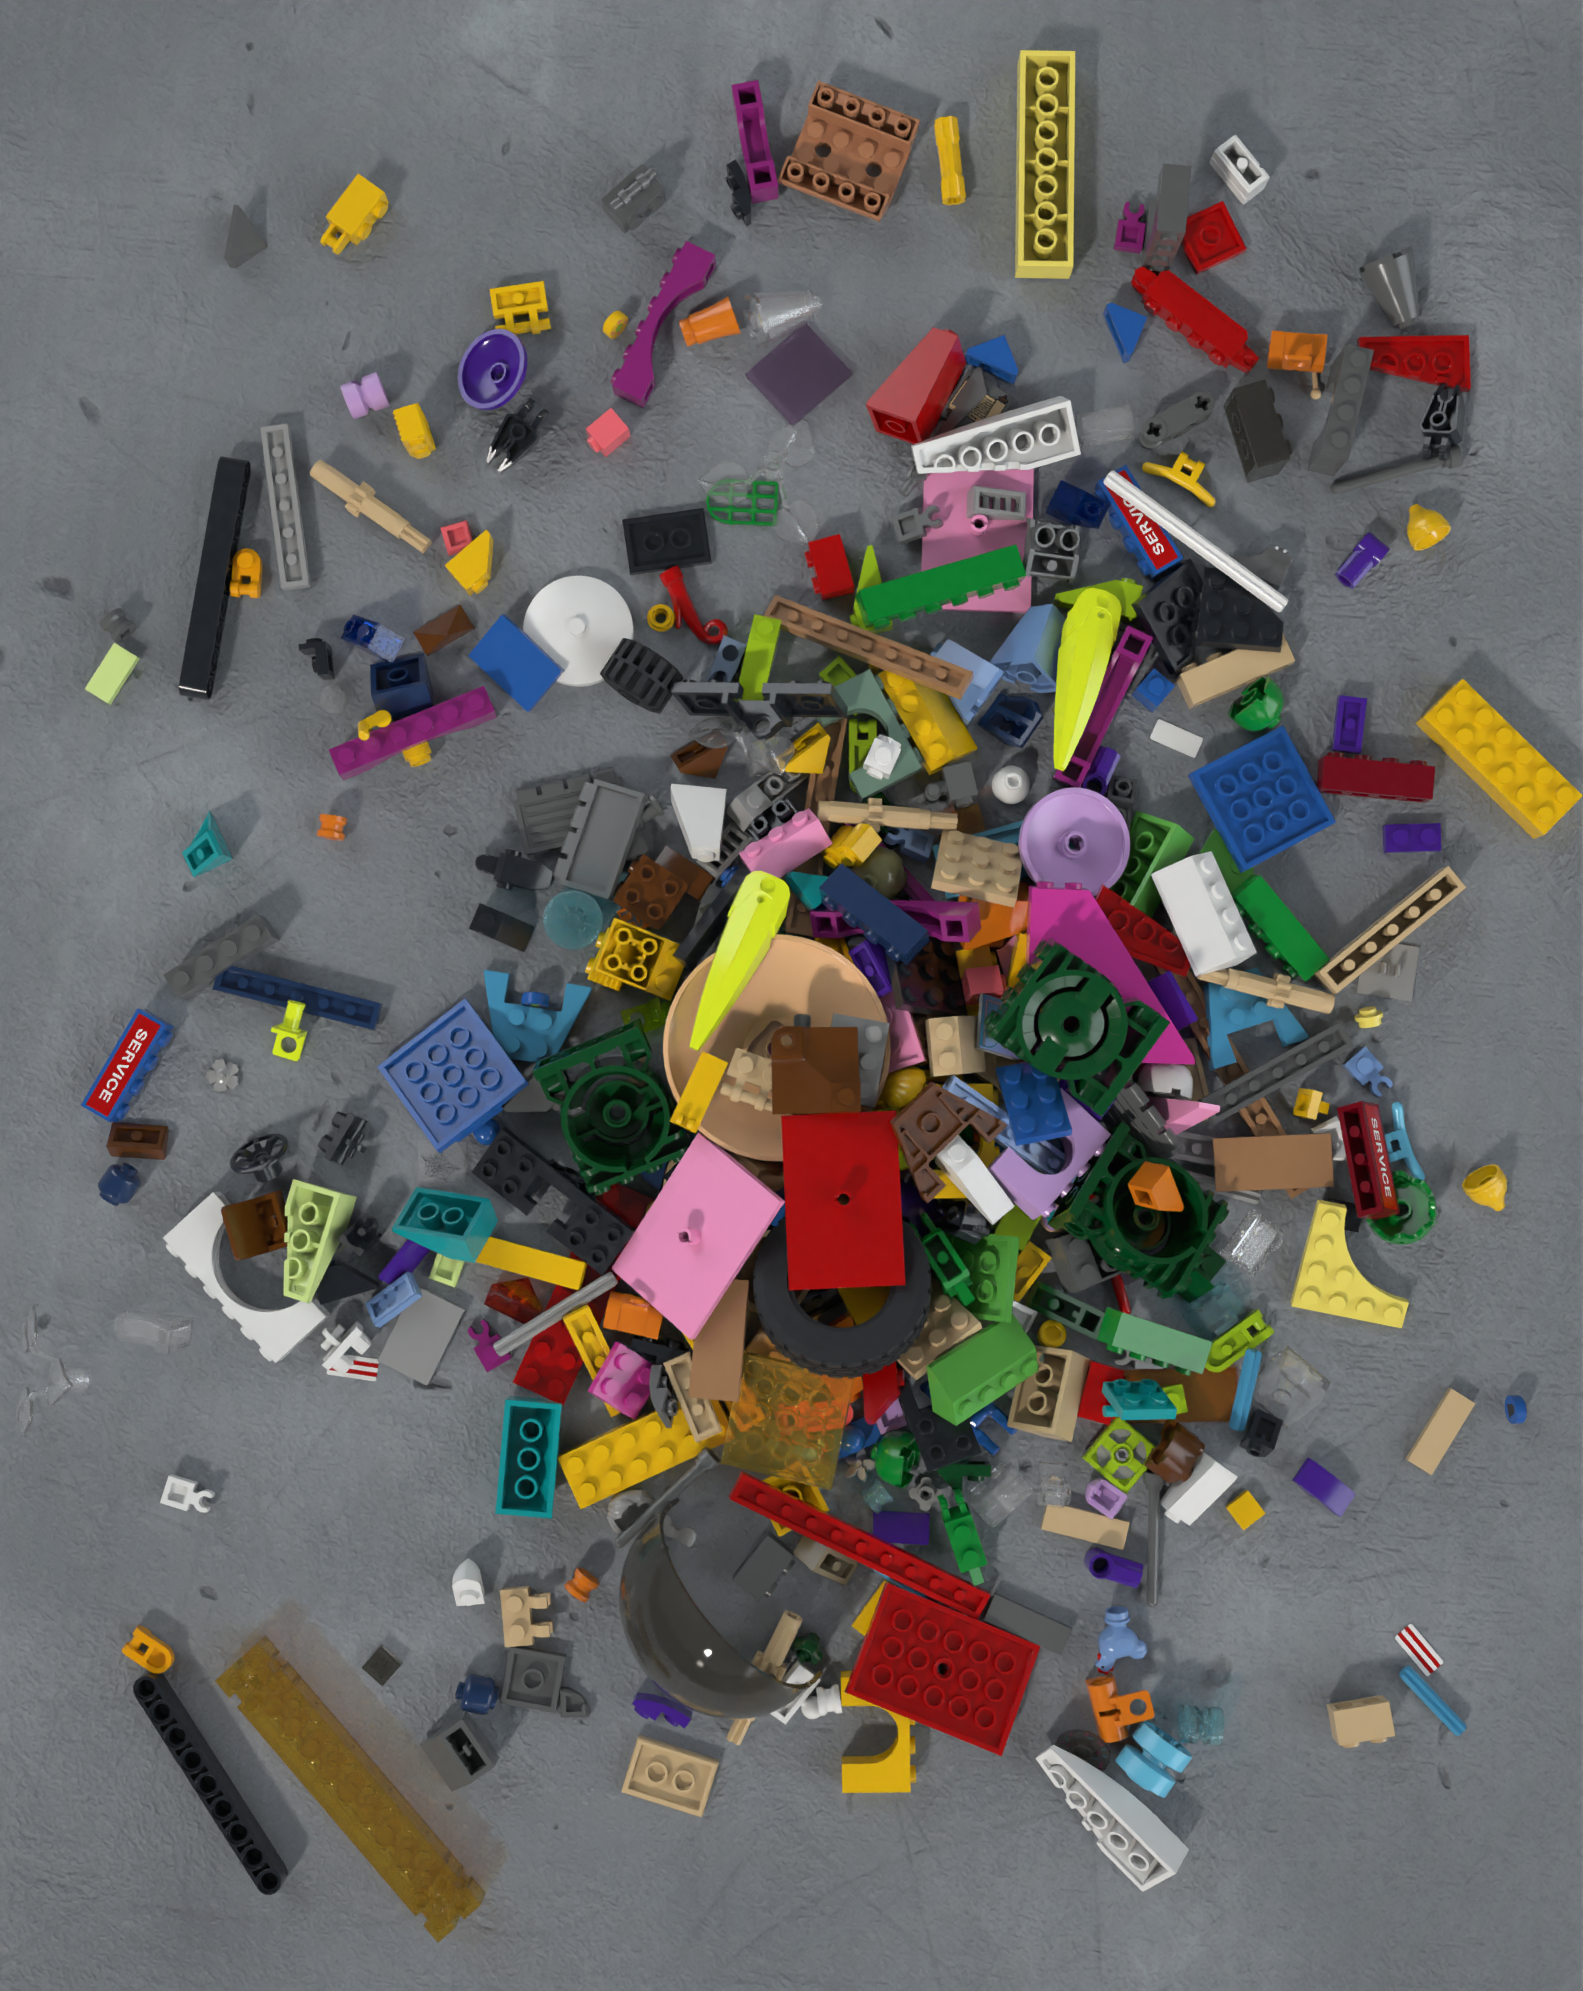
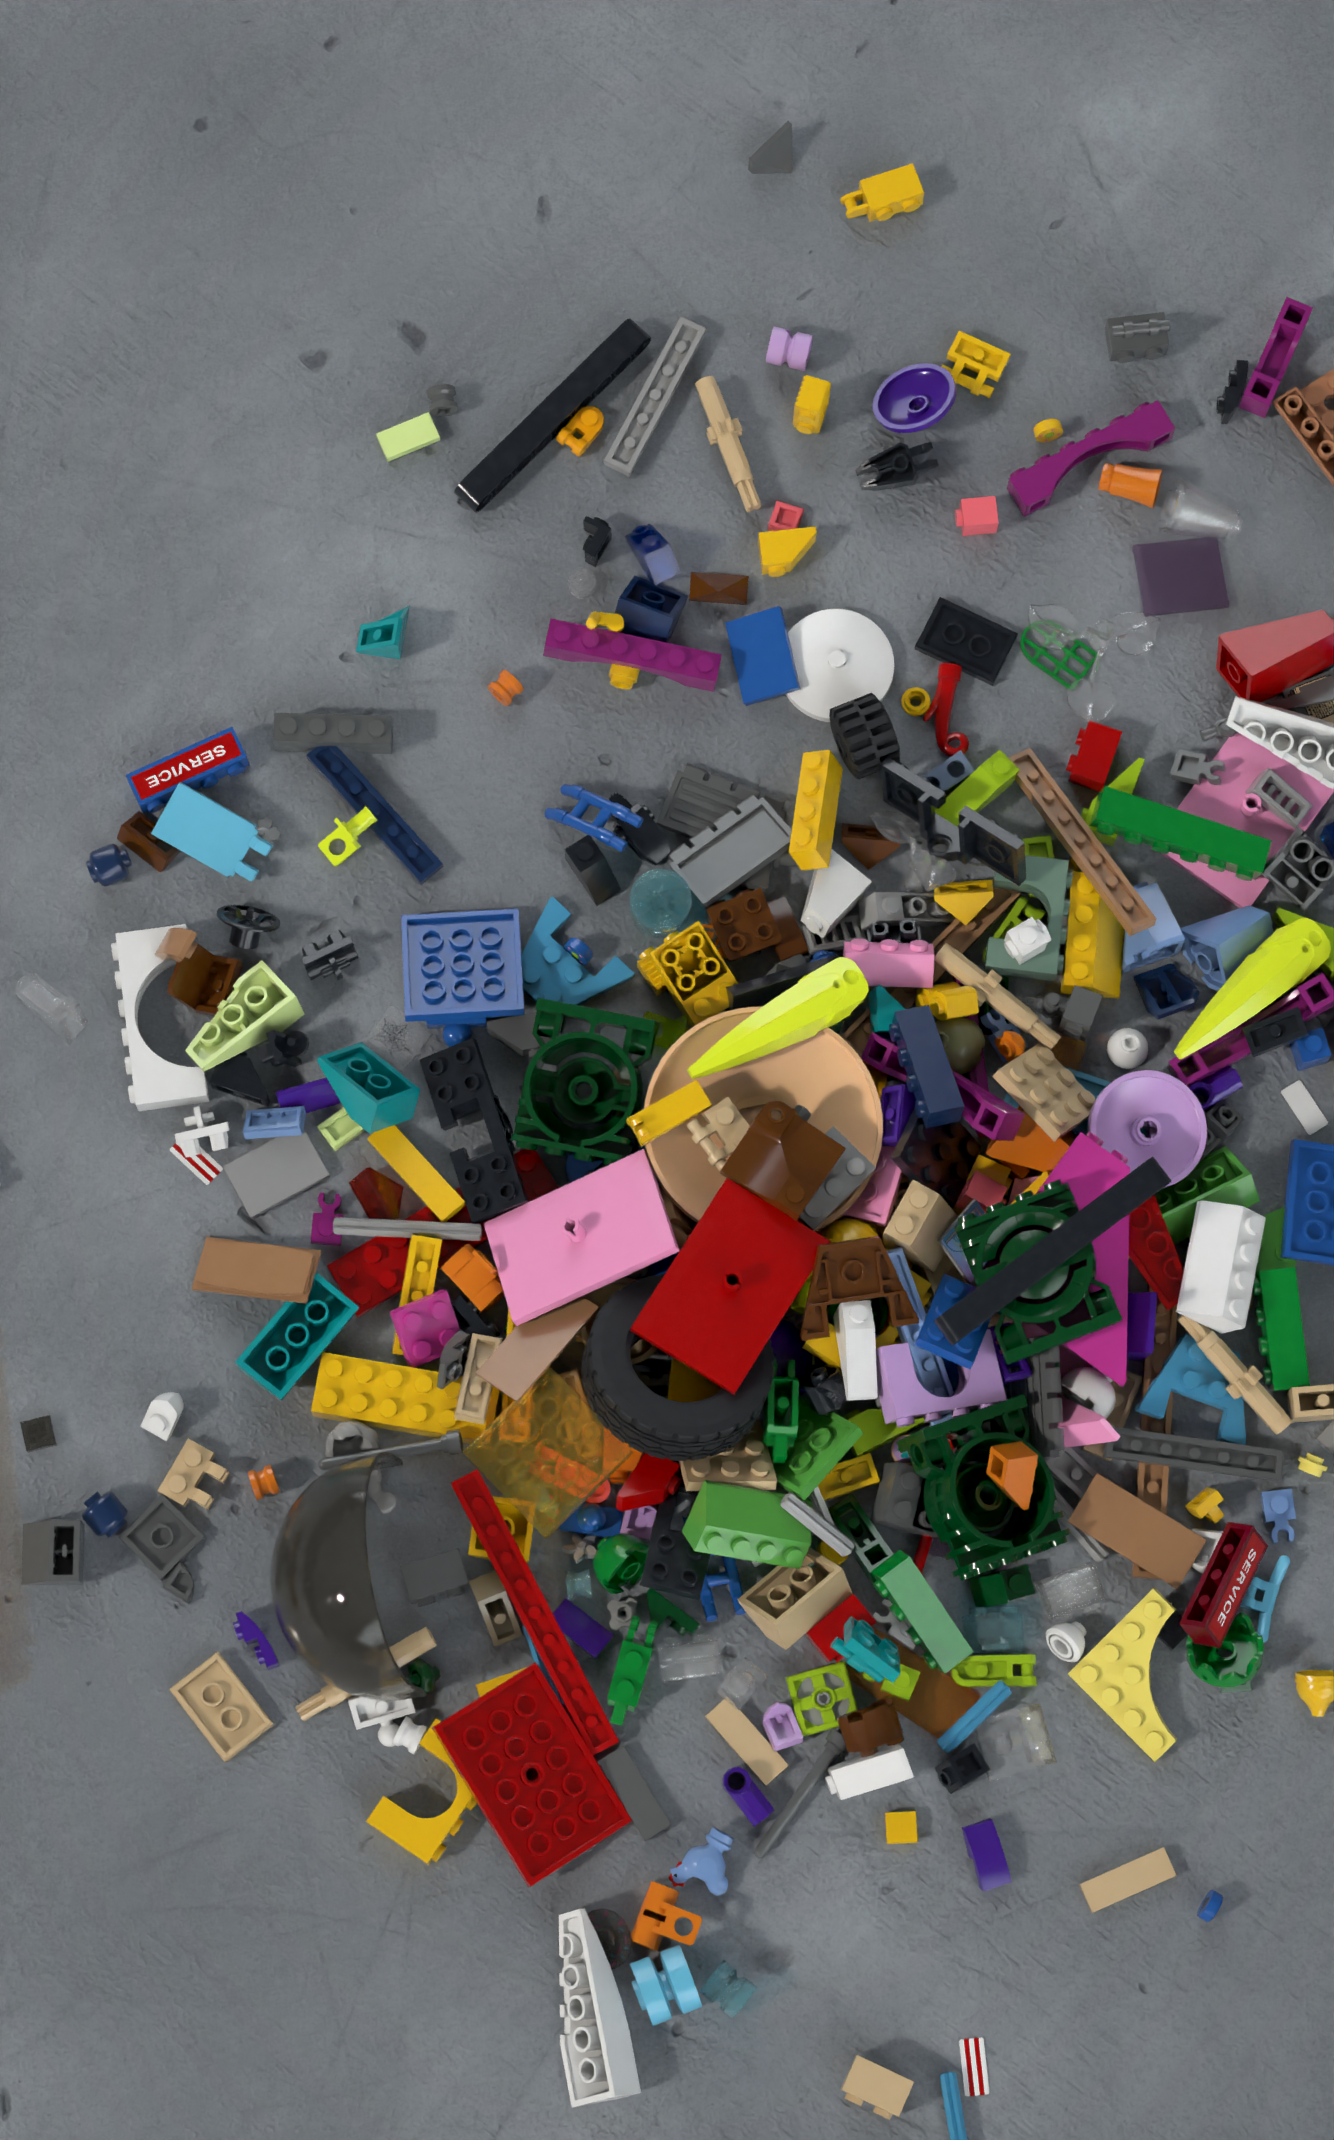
camera: 30 degrees right, 10 degrees down
(181, 1104) = (210, 833): none -> medium azure tile
(218, 1219) = (177, 944): none -> medium nougat slope
(461, 1426) = (256, 1270): none -> medium nougat piece
(481, 896) = (595, 828): none -> blue piece
(644, 762) = (815, 810): none -> yellow brick
(923, 848) = (1010, 1045): none -> orange plate
(1031, 1330) = (817, 1524): none -> light grey axle
(1082, 1006) = (1052, 1251): none -> black beam
(1121, 696) = (1275, 1031): none -> black plate
(1275, 1281) = (1067, 1640): none -> white brick

